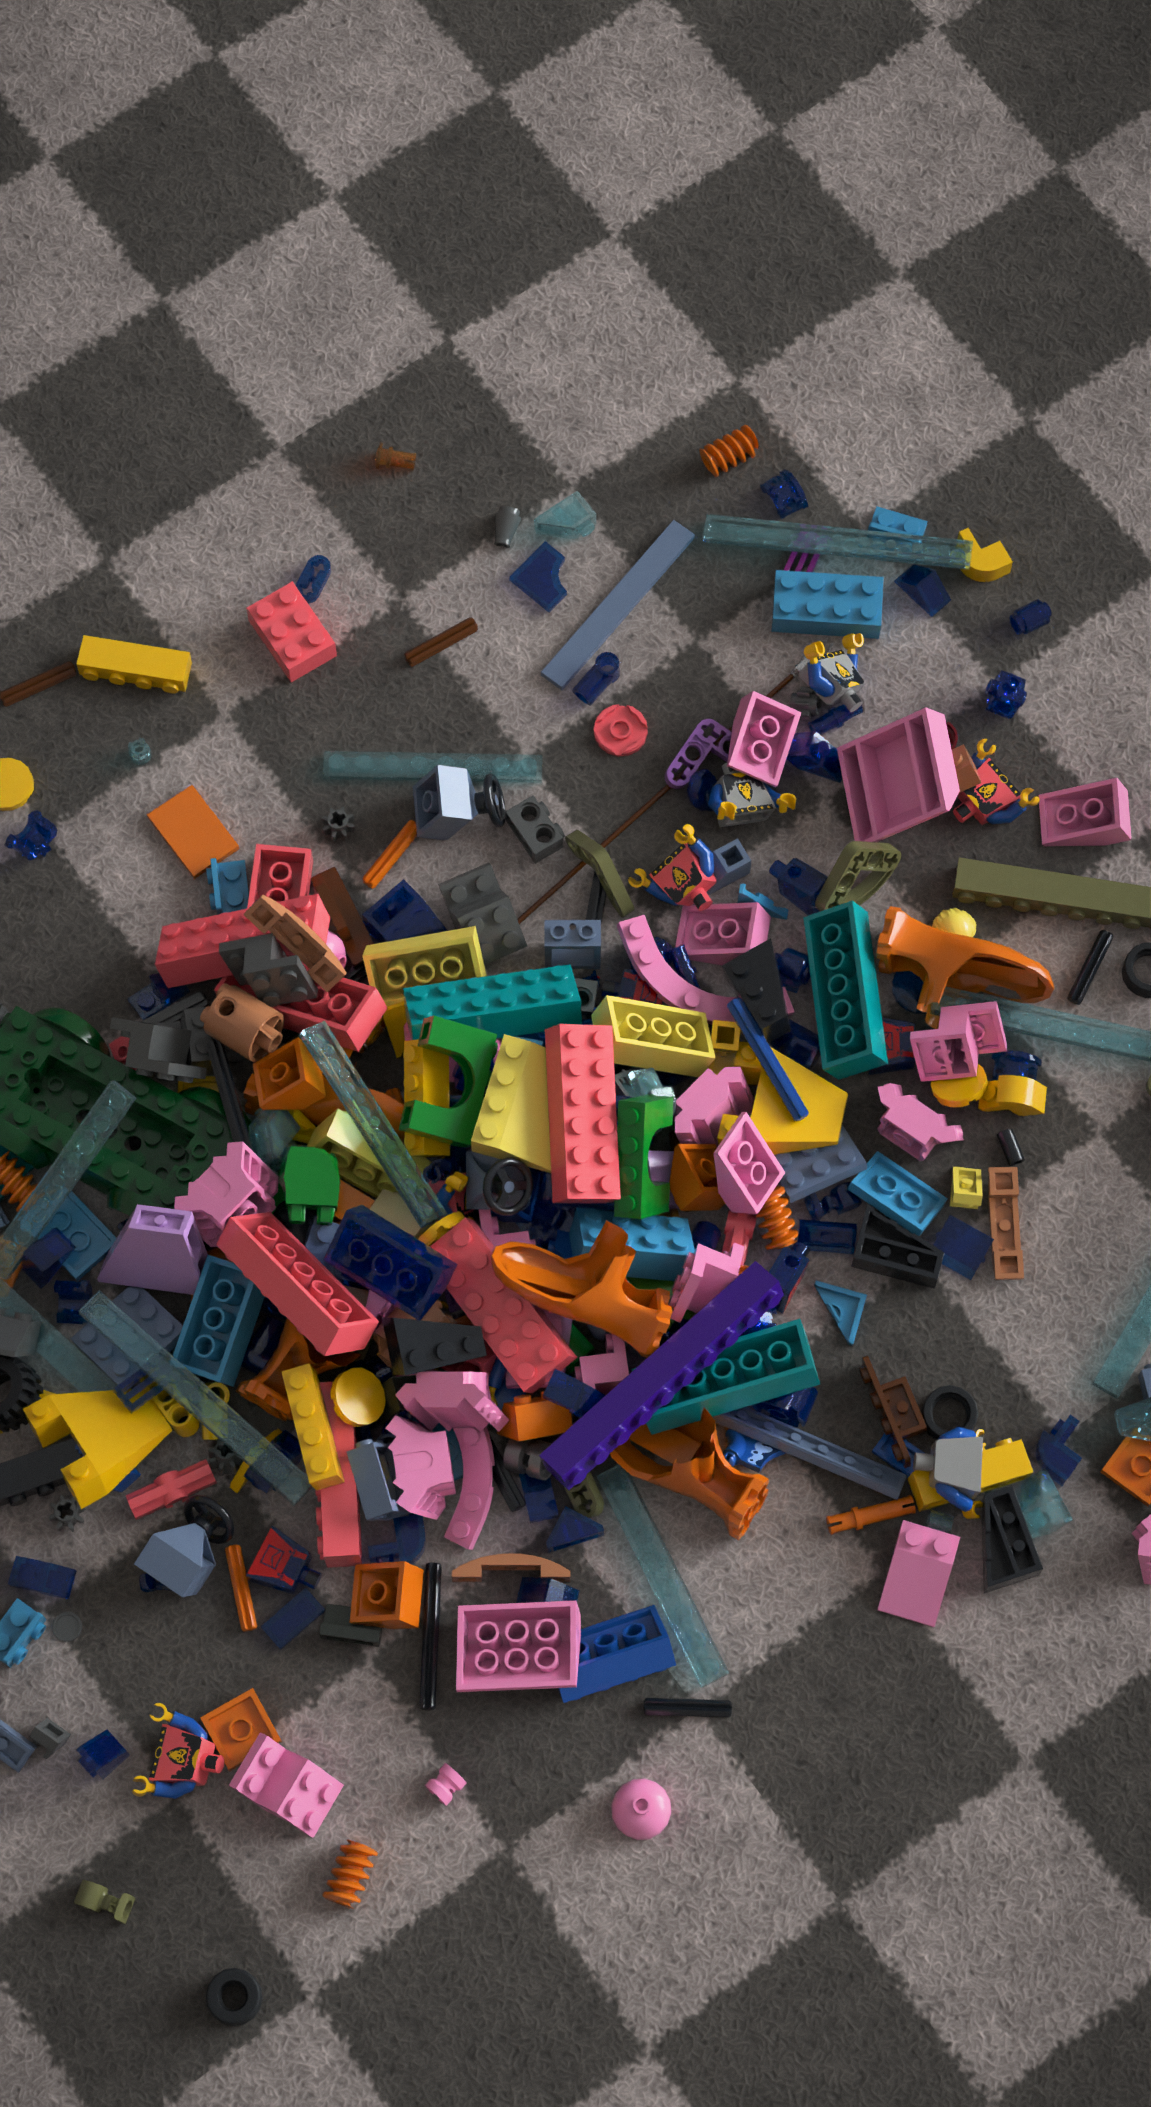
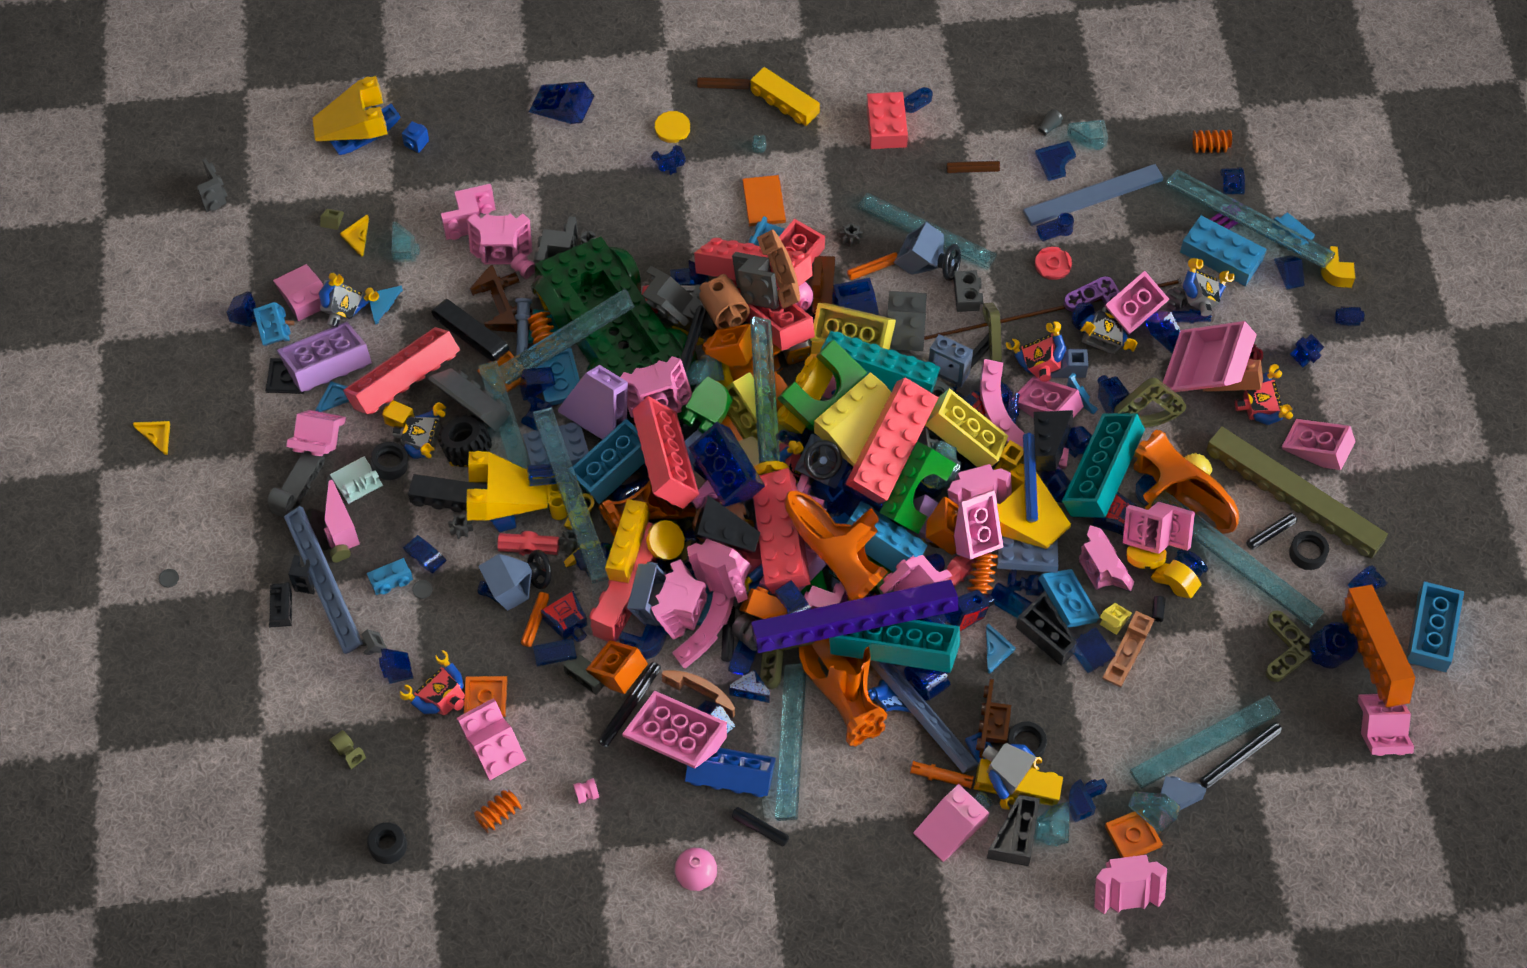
camera: 30 degrees right, 10 degrees down
(394, 458) = (1003, 56): clear orange pin -> none

